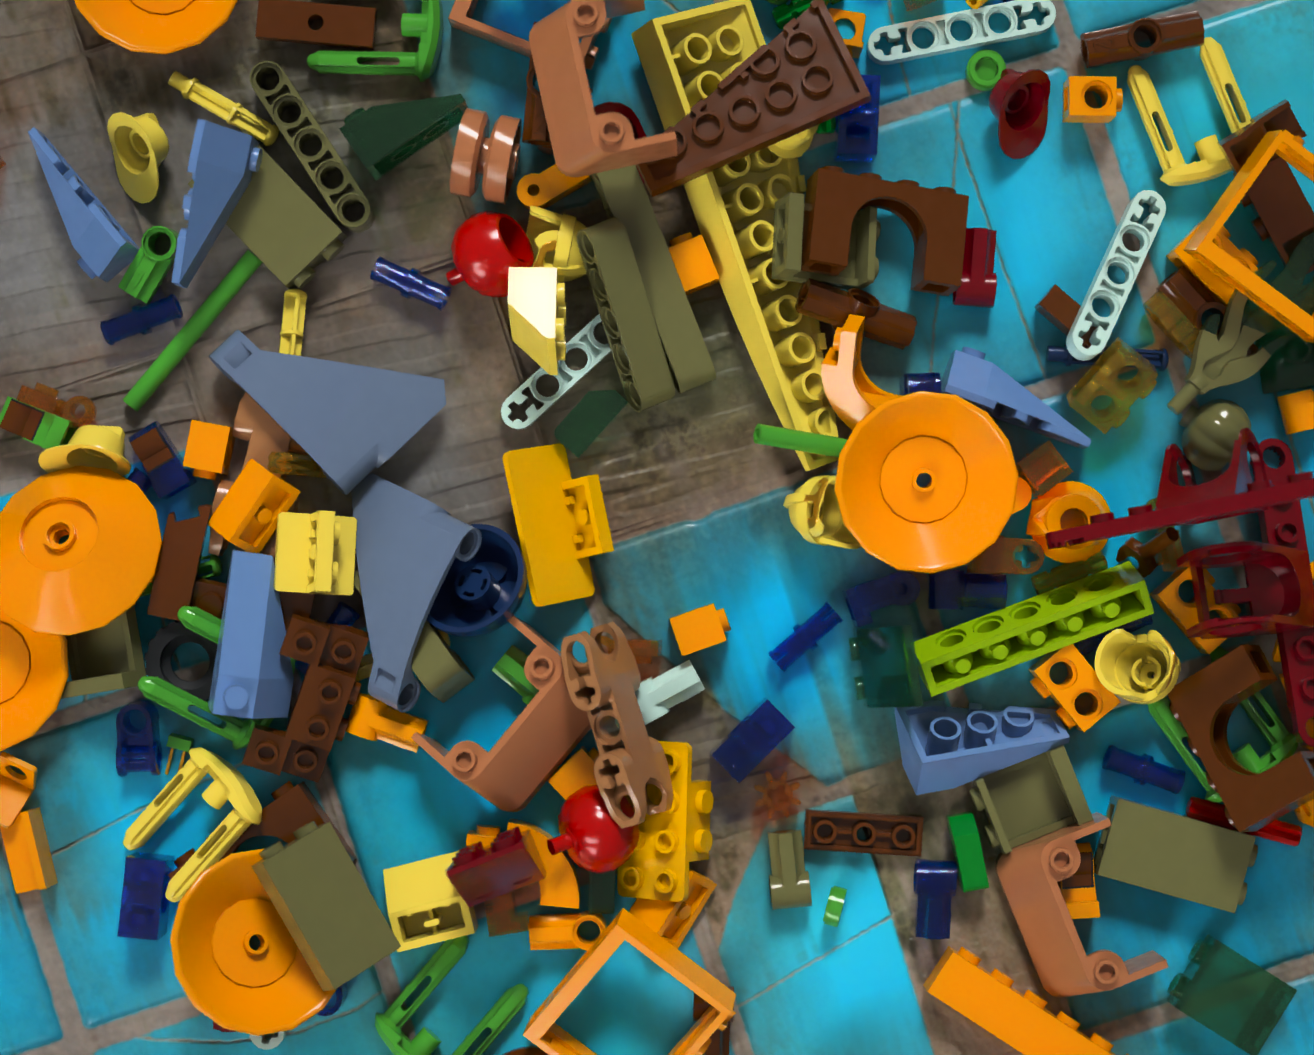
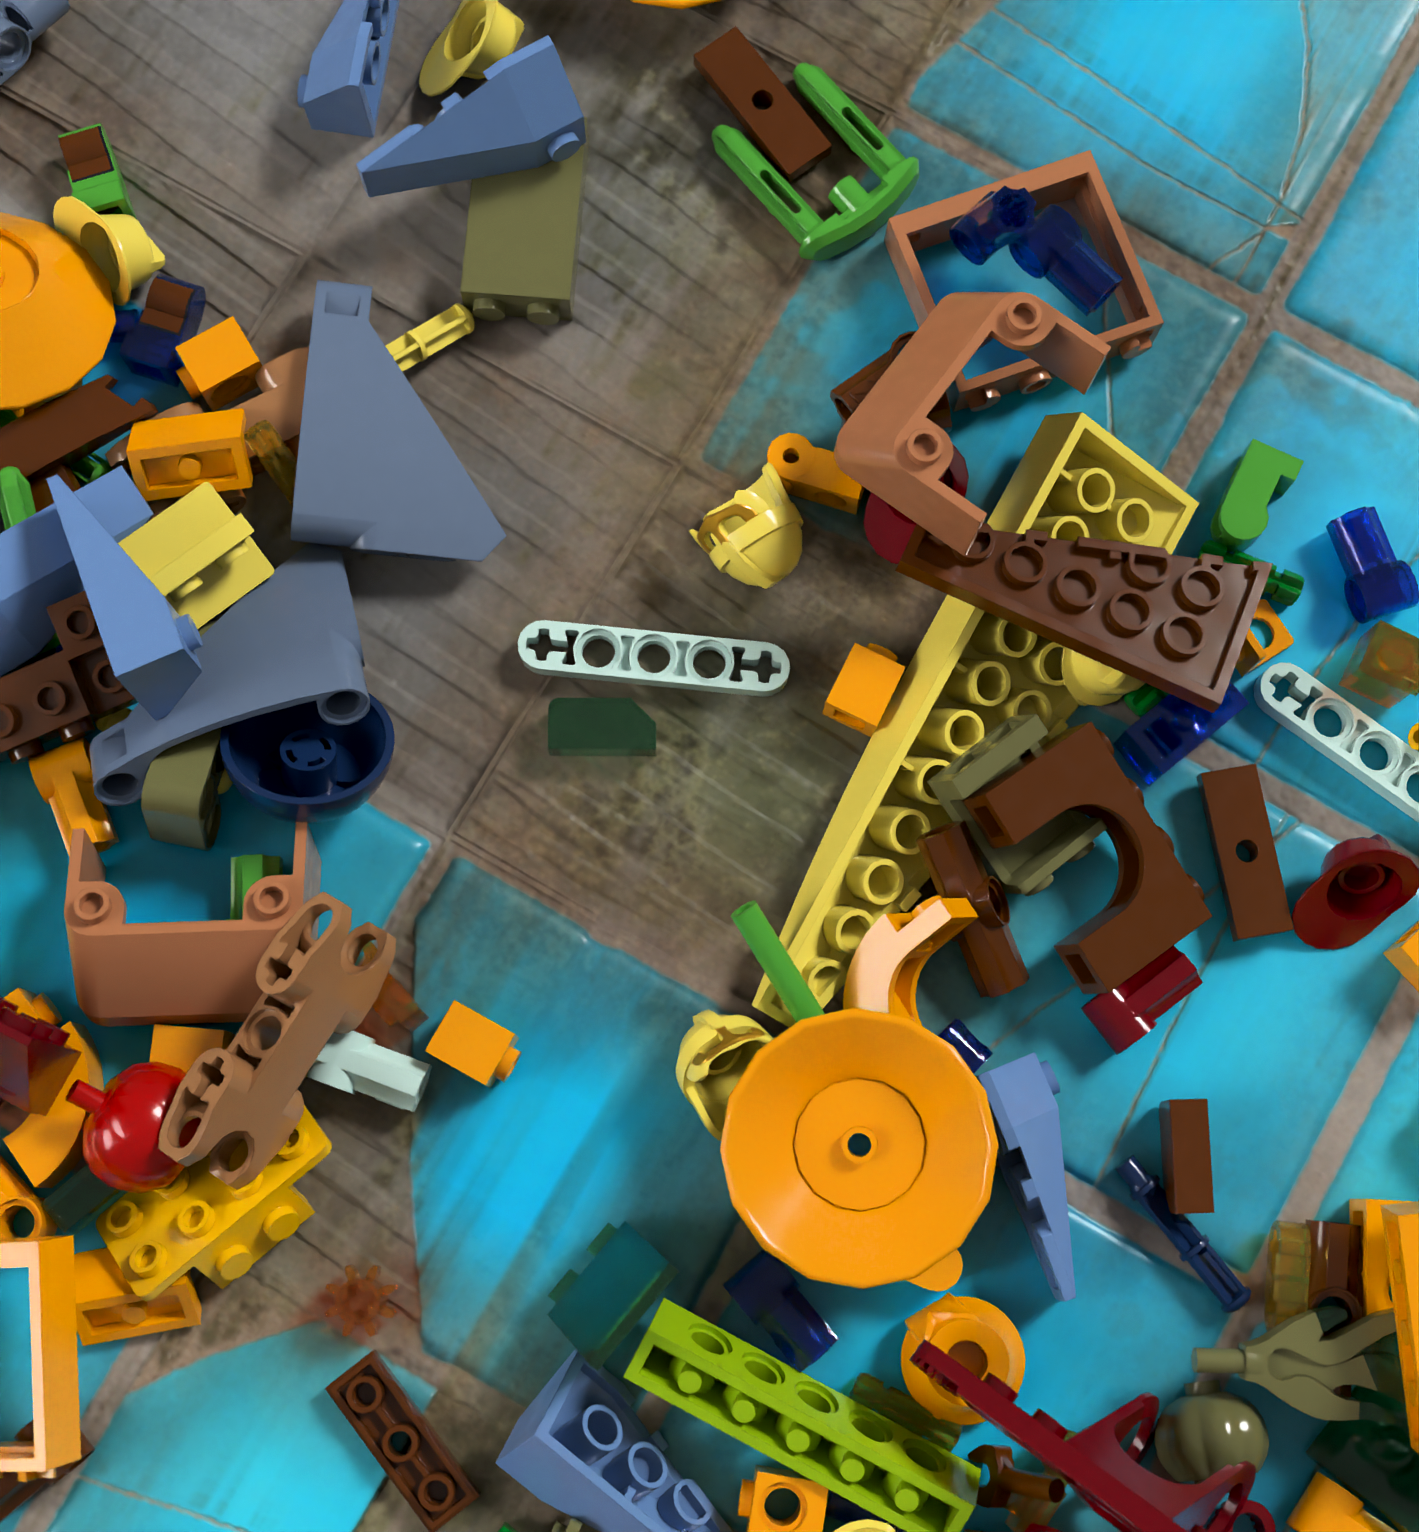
camera: 45 degrees right, 10 degrees down
(46, 399) = (131, 163): clear orange plate -> none
(141, 319) = (299, 188): clear blue pin -> none
(149, 267) = (341, 149): bright green piece -> none
(192, 330) = (331, 248): bright green piece -> none
(224, 108) = (595, 101): light yellow piece -> none
(299, 133) = (632, 180): olive beam -> none
(346, 614) = (140, 629): none -> medium blue wedge
(396, 131) = (727, 269): clear green slope -> none
(410, 283) = (580, 420): clear blue pin -> none
(479, 155) = (779, 373): nougat wheel -> none
(486, 249) = (682, 469): red piece -> none
(538, 314) = (664, 568): slope -> none
(556, 522) = (453, 785): yellow bracket -> none
(626, 314) = (747, 660): olive beam -> none
(679, 333) = (815, 658): olive beam -> none
(752, 740) = (398, 1216): clear blue brick -> none
(788, 878) = (274, 1402): olive piece -> none
(805, 636) = (569, 1173): clear blue pin -> none
(834, 906) = (287, 1484): bright green tile -> none
(894, 589) = (711, 1226): clear blue leg -> none
(928, 133) = (1235, 817): none -> reddish brown tile
(984, 69) = (1357, 816): bright green tile -> none
(1001, 557) = (853, 1311): clear orange piece -> none
(1043, 468) = (993, 1271): clear orange brick -> none
(1103, 287) = (1254, 1159): light aqua beam -> none
(1104, 380) = (1153, 1250): clear yellow brick -> none

